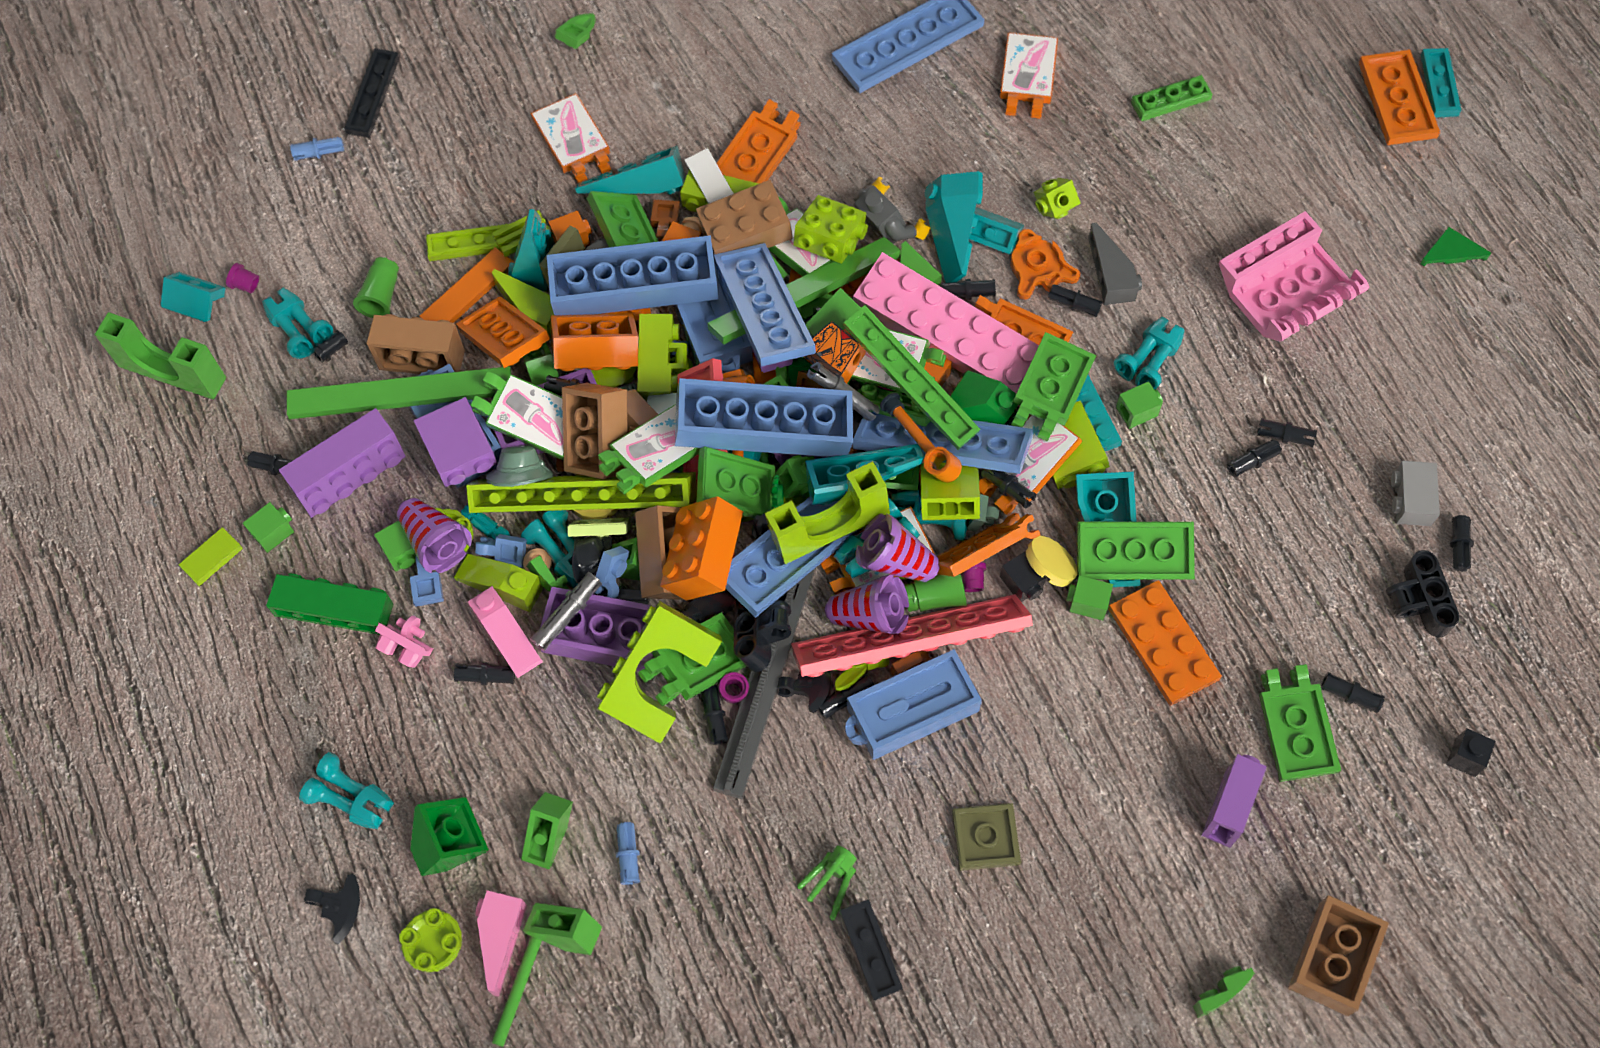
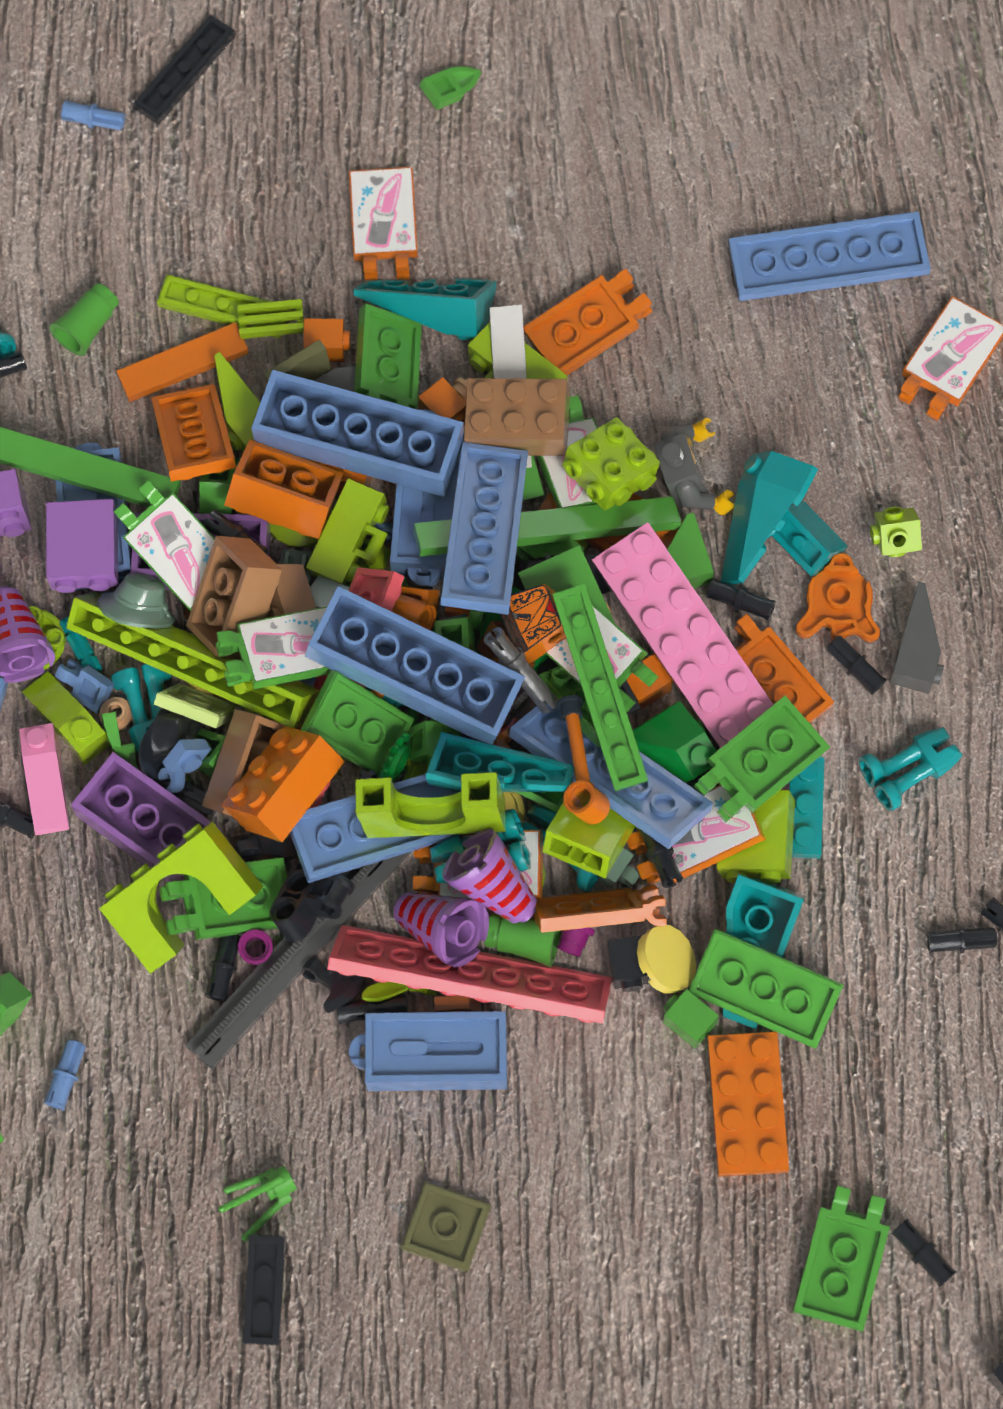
camera: 25 degrees right, 5 degrees up
(414, 344) = (94, 408): medium nougat brick -> none
(531, 250) = (269, 347): teal wedge -> none
(566, 611) = (127, 780): flat silver pin -> none
(663, 215) = (440, 362): dark orange plate -> none
(1139, 404) = (863, 821): bright green brick -> none
(1234, 800) = (723, 1309): medium lavender brick -> none

